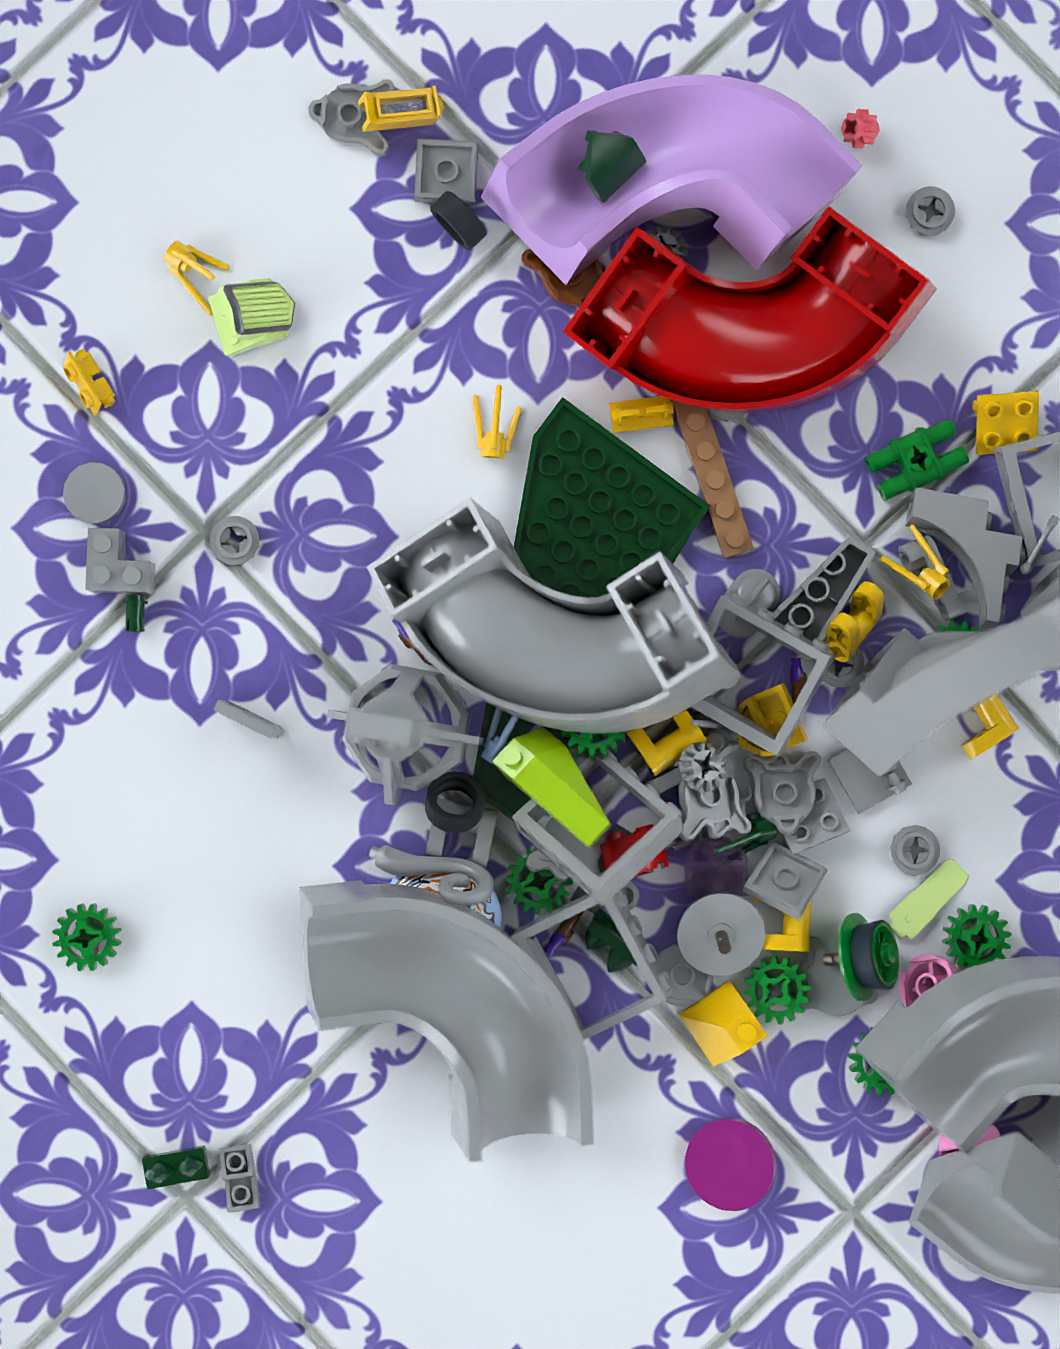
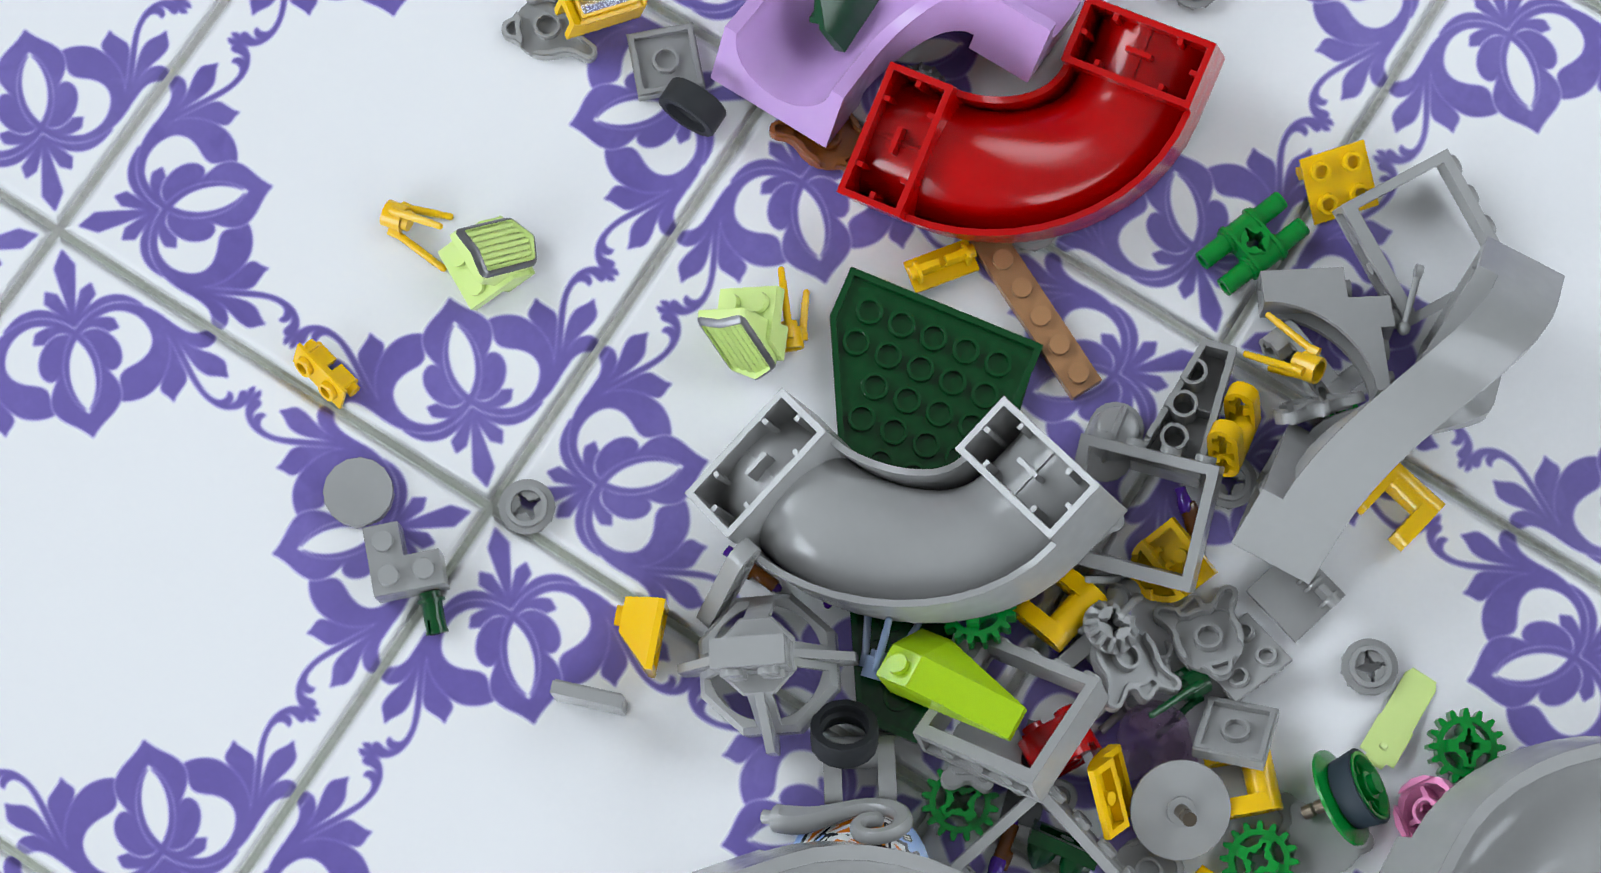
camera: 10 degrees left, 10 degrees down
(307, 672) = (643, 628): none -> yellow slope
(387, 651) = (728, 581): none -> light grey beam
(458, 431) = (747, 329): none -> yellowish green piece
(666, 903) = (1111, 789): none -> yellow slope
(921, 619) = (1306, 408): none -> light grey tile

